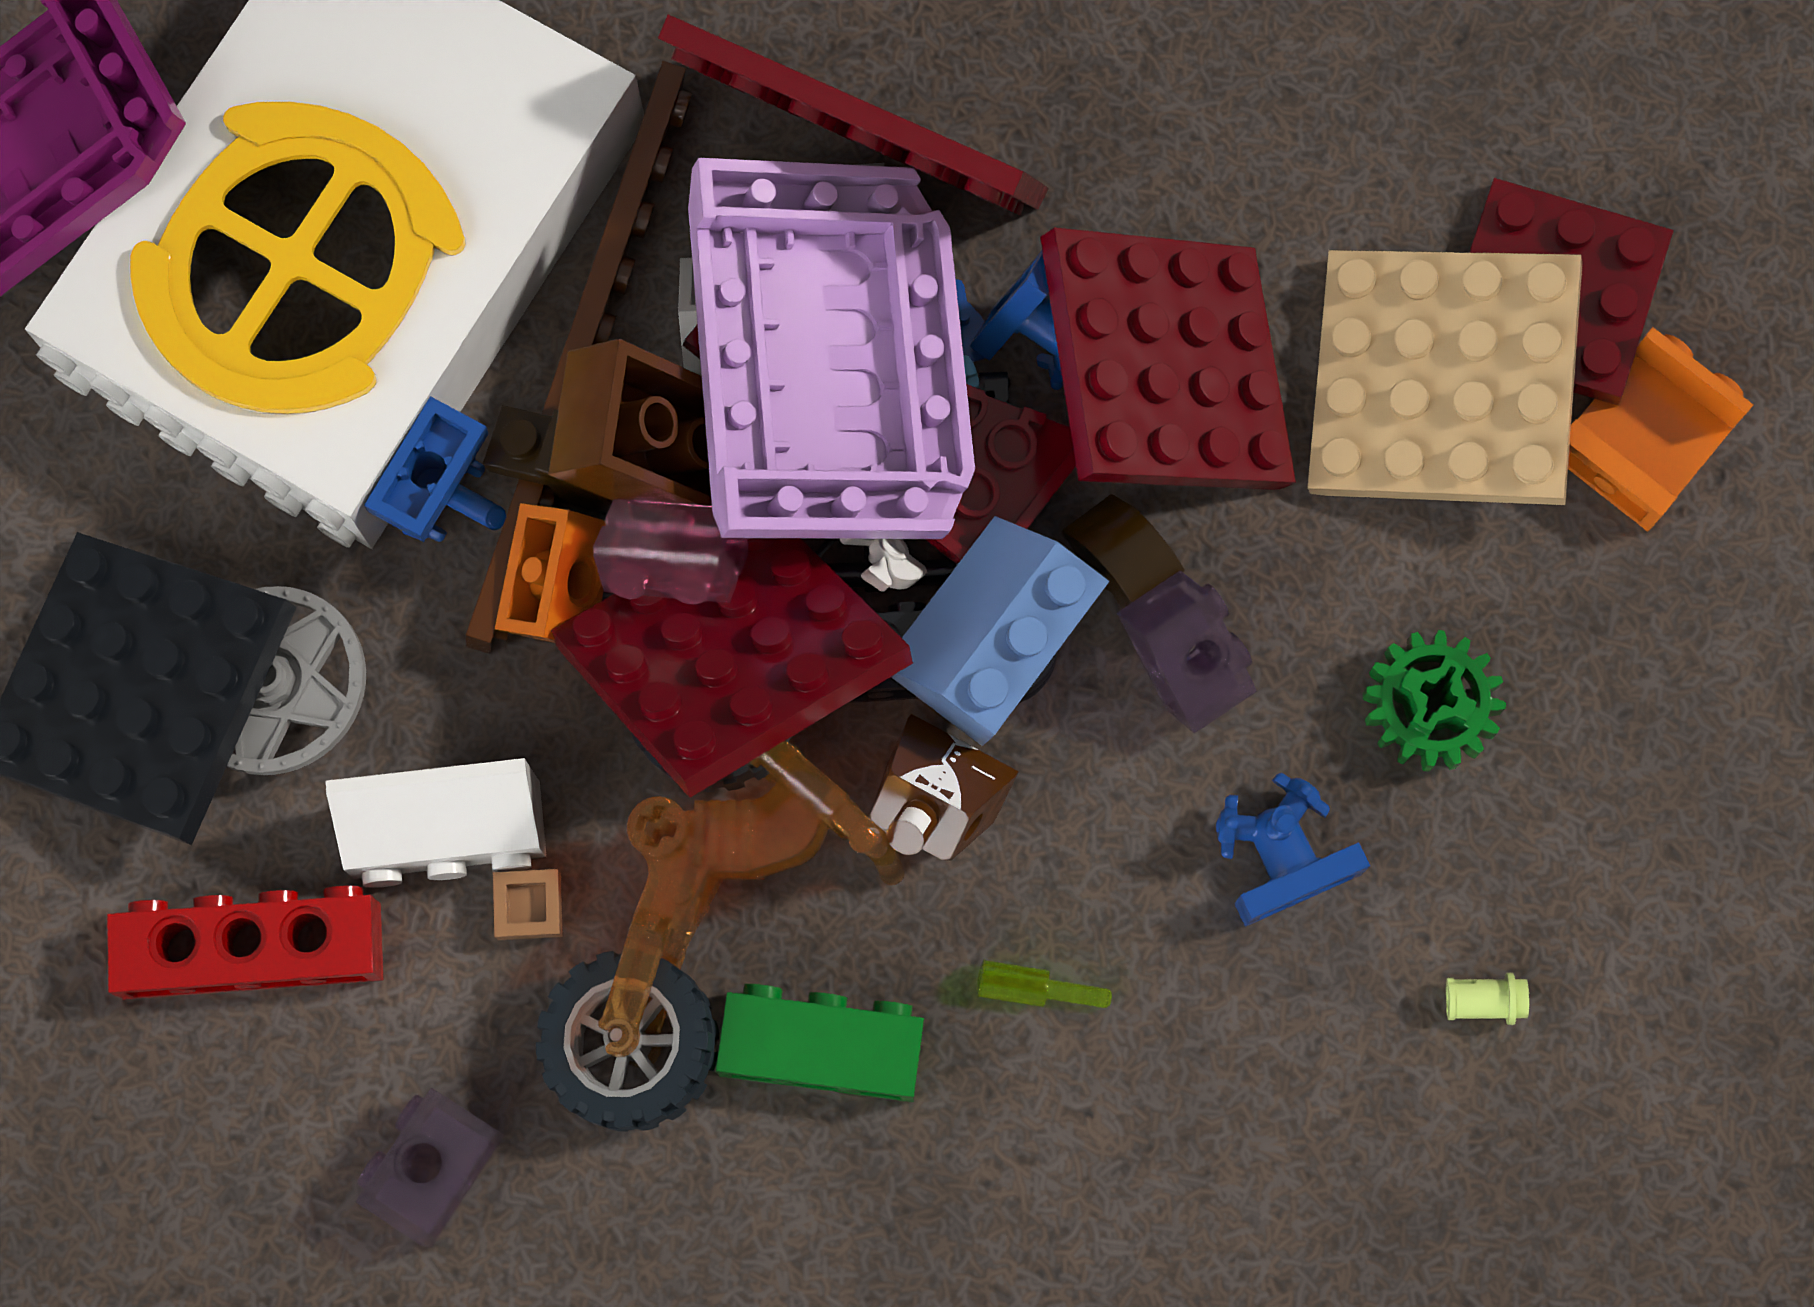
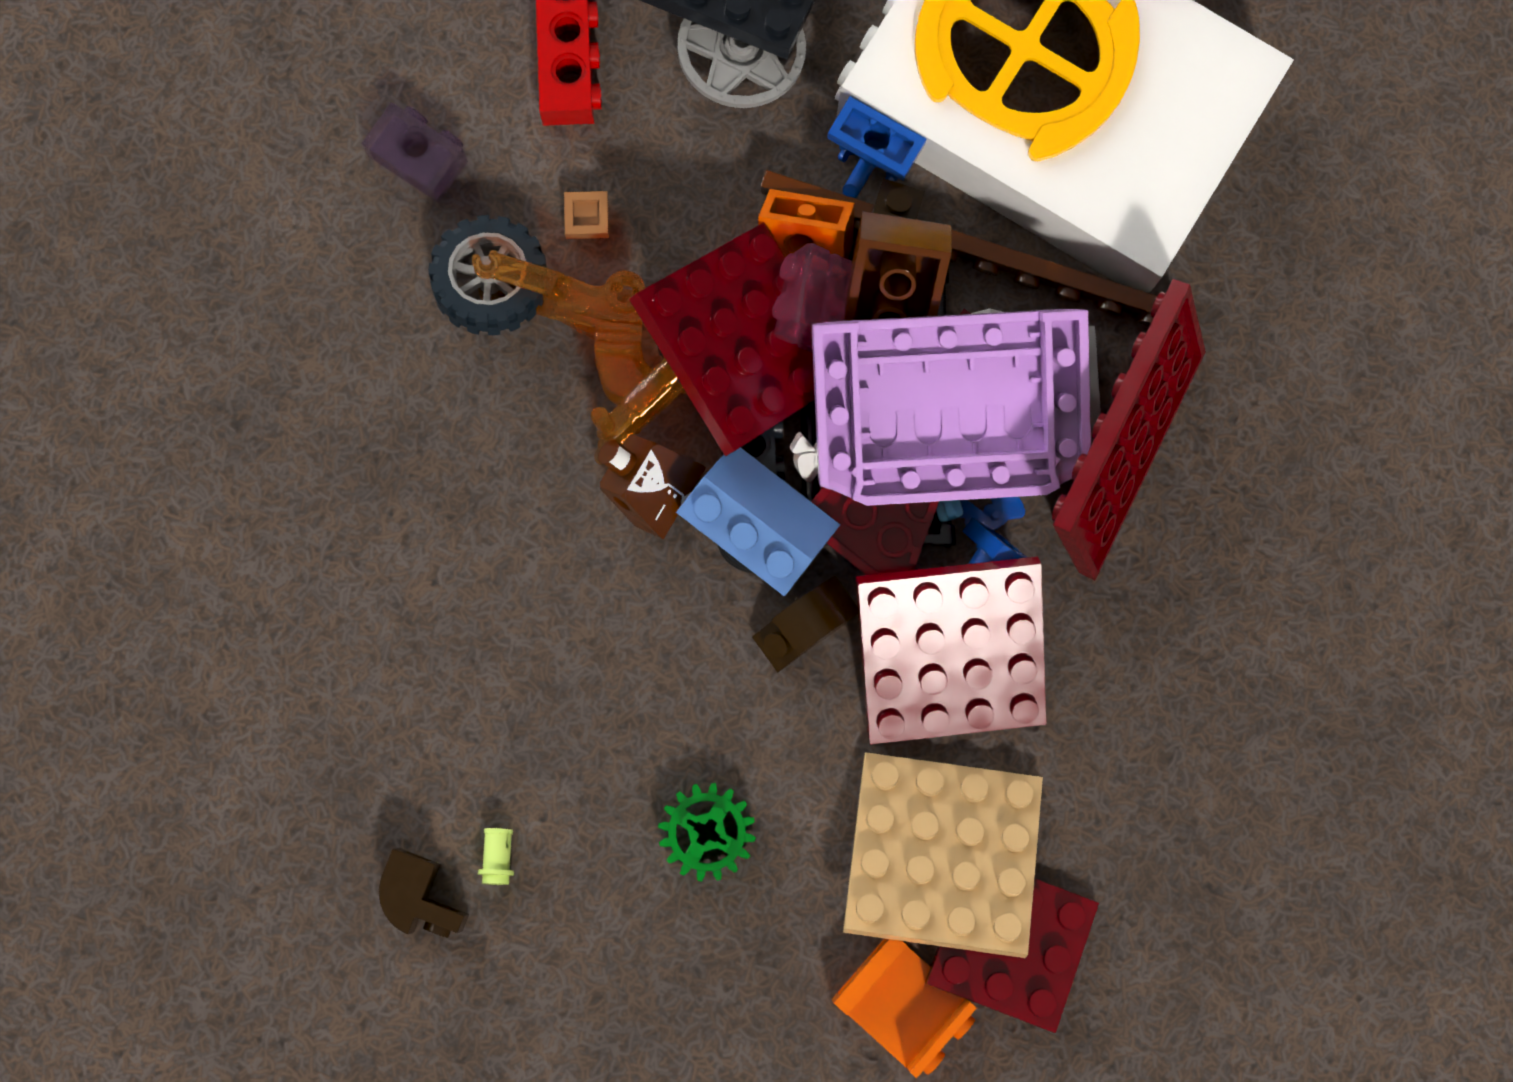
camera: 85 degrees right, 5 degrees up
(438, 821) = (638, 155): white slope -> none
(820, 1043) = (484, 403): green brick -> none
(1033, 986) = (519, 547): clear neon green axle -> none
(1163, 631) = (741, 656): clear purple brick -> none
(1285, 851) = (603, 721): blue piece -> none
(1554, 1125) = (405, 895): none -> dark brown brick

